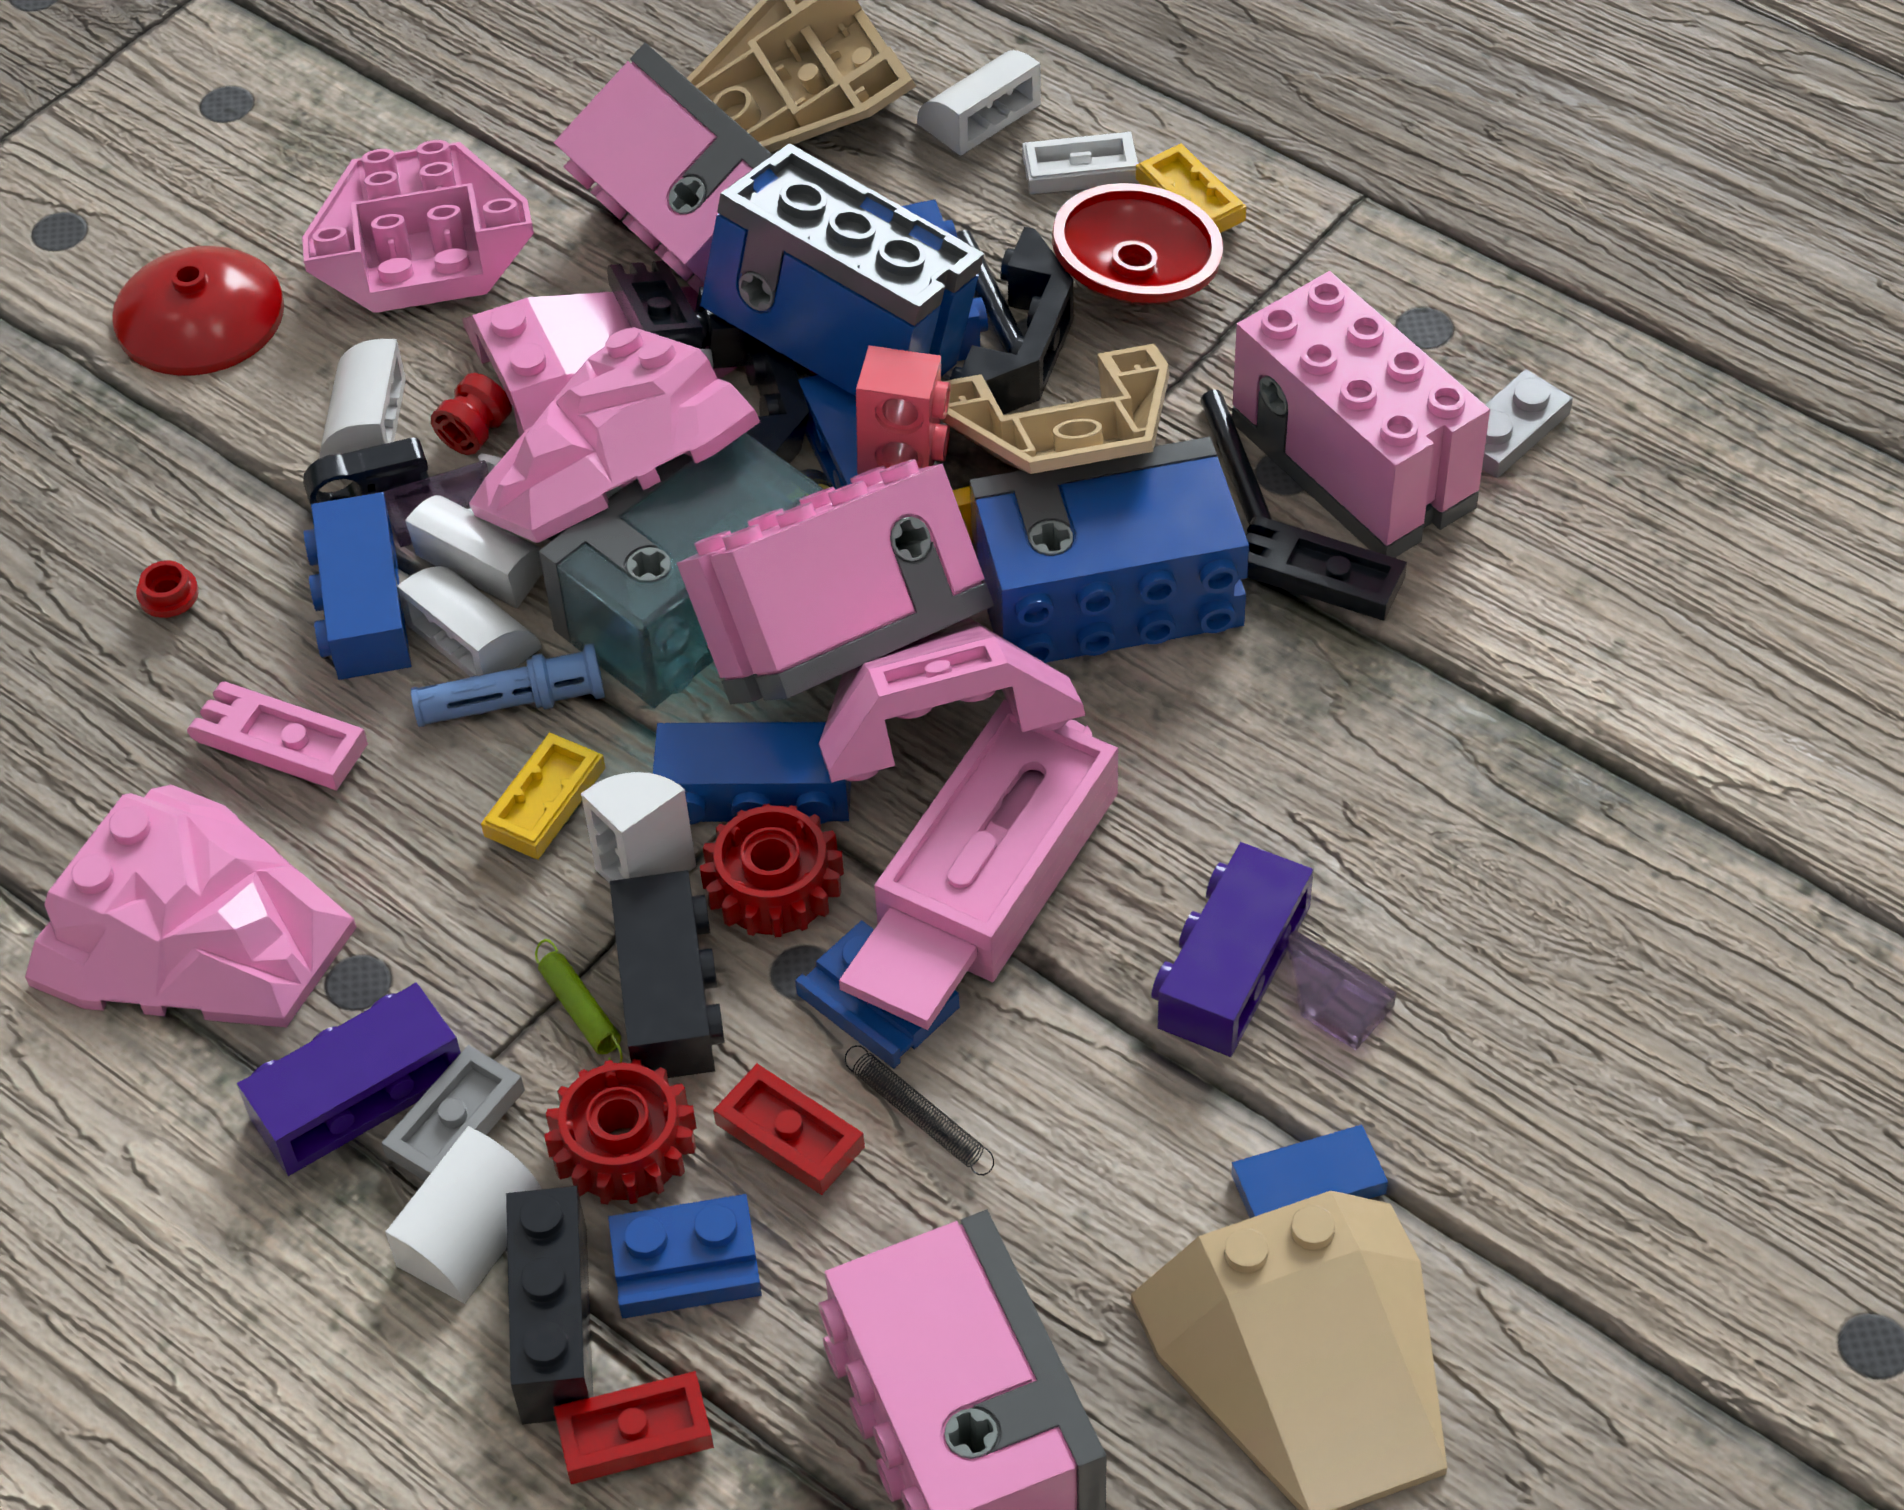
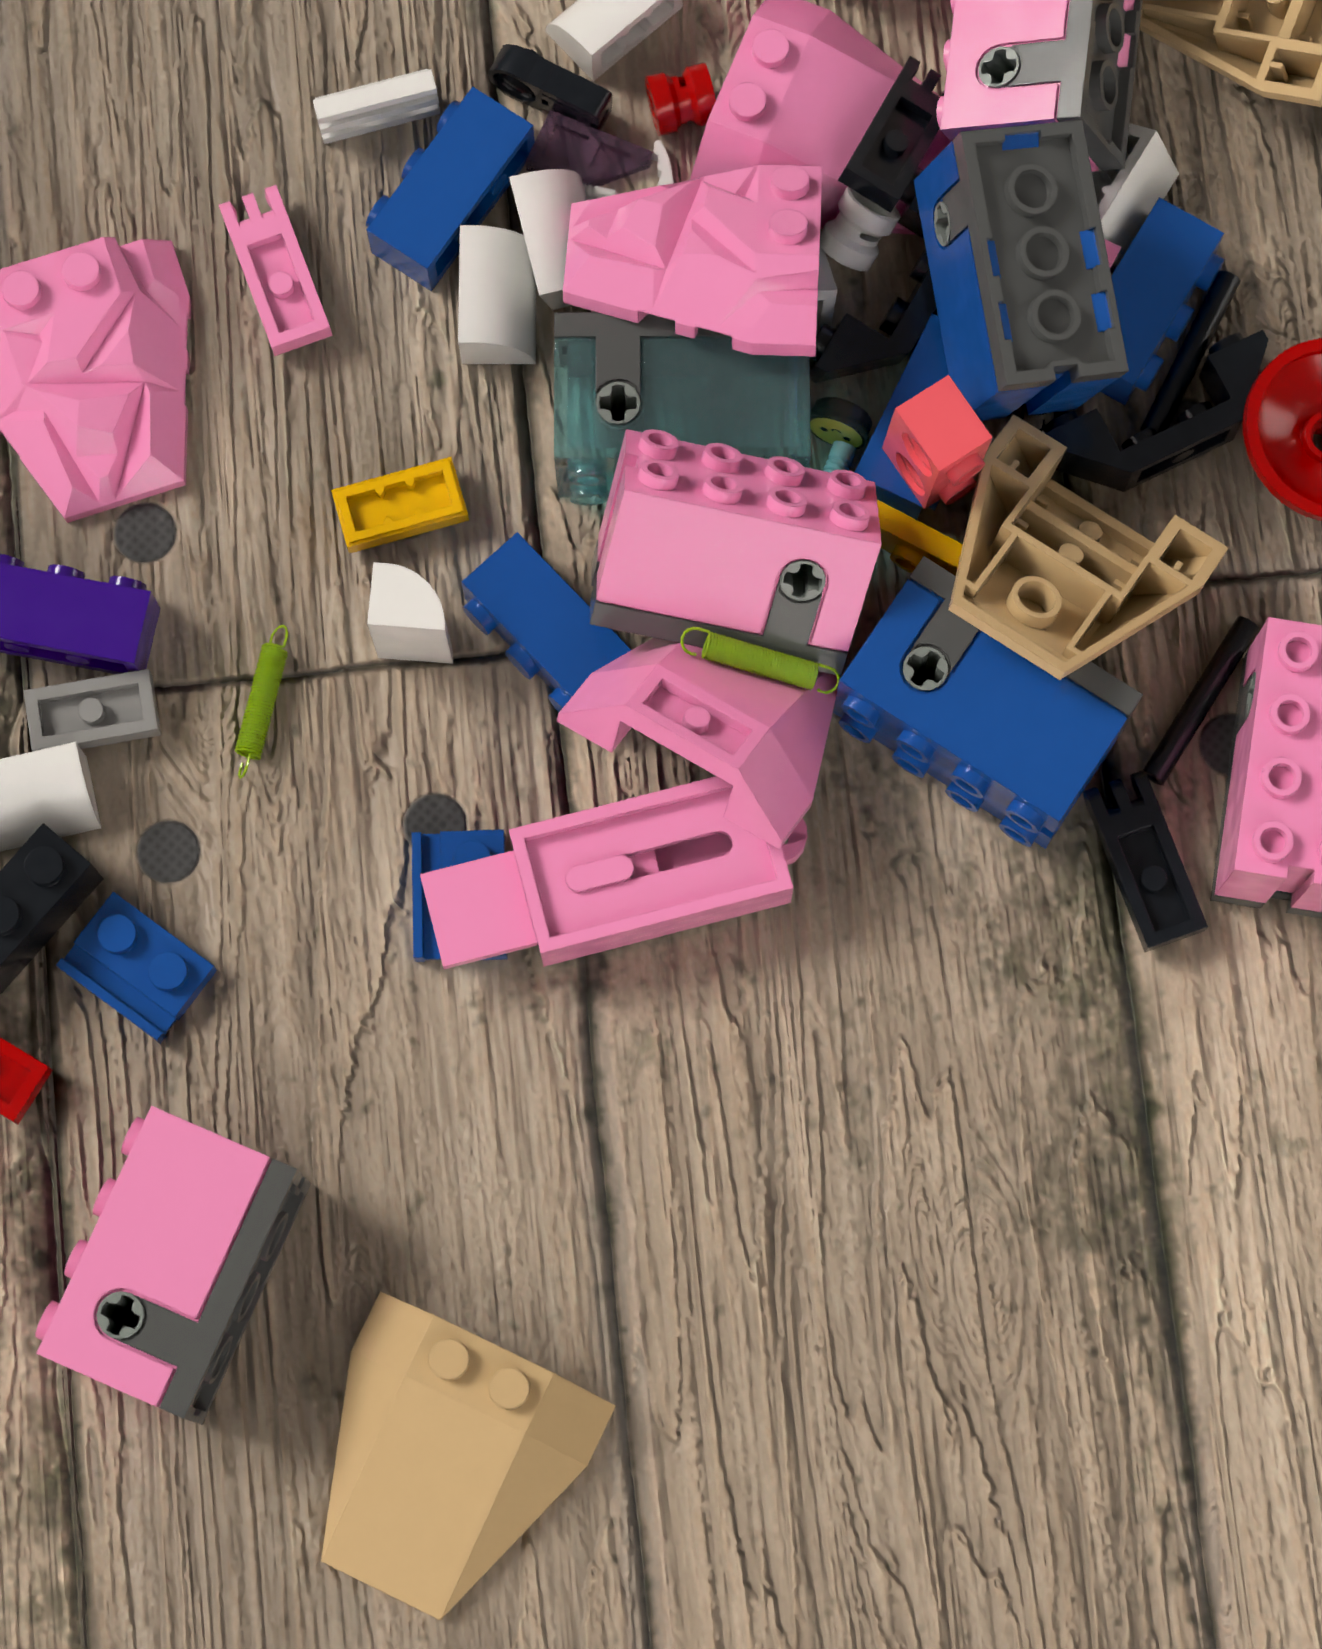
camera: 45 degrees right, 25 degrees up
(166, 589) = (320, 41): red plate -> none
(245, 582) = (377, 106): none -> white tile
(538, 682) = (490, 400): medium blue pin -> none
(625, 1163) = (160, 808): red gear -> none
(666, 973) = (328, 741): black brick -> none
(778, 899) = (476, 695): red gear -> none
(789, 1129) = (289, 944): red plate -> none
(921, 1110) = (390, 1053): black piece -> none
(932, 627) = (760, 660): none -> lime piece
(1232, 948) = (722, 1111): dark purple brick -> none
(1299, 1171) = (584, 1331): blue tile -> none
(1337, 993) = (759, 1214): clear purple tile -> none

